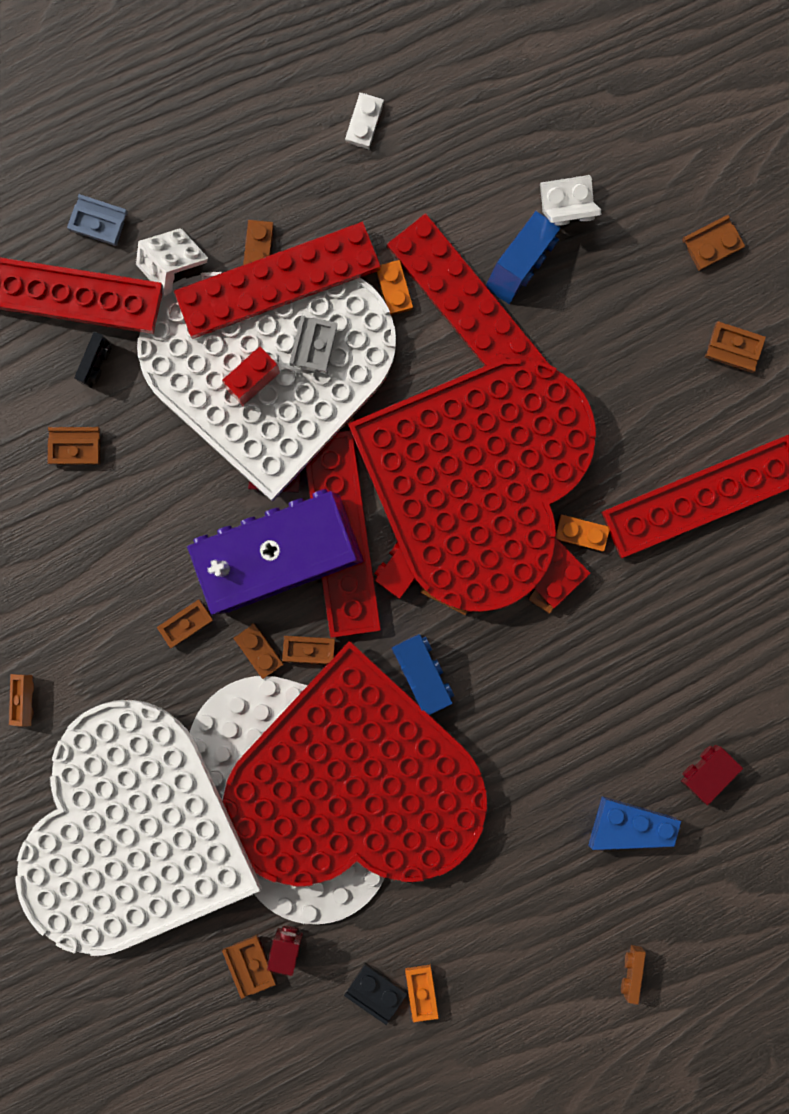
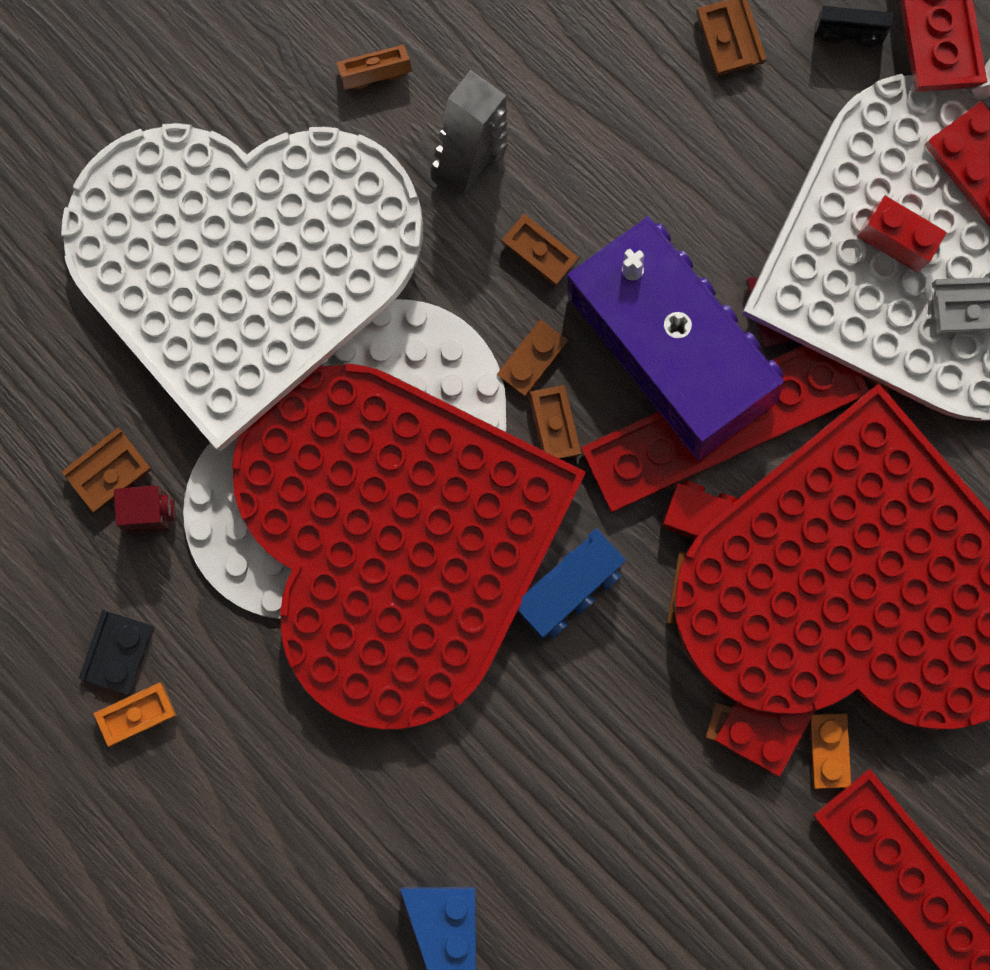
camera: 65 degrees right, 5 degrees down
(90, 649) = (471, 132): none -> flat silver wedge

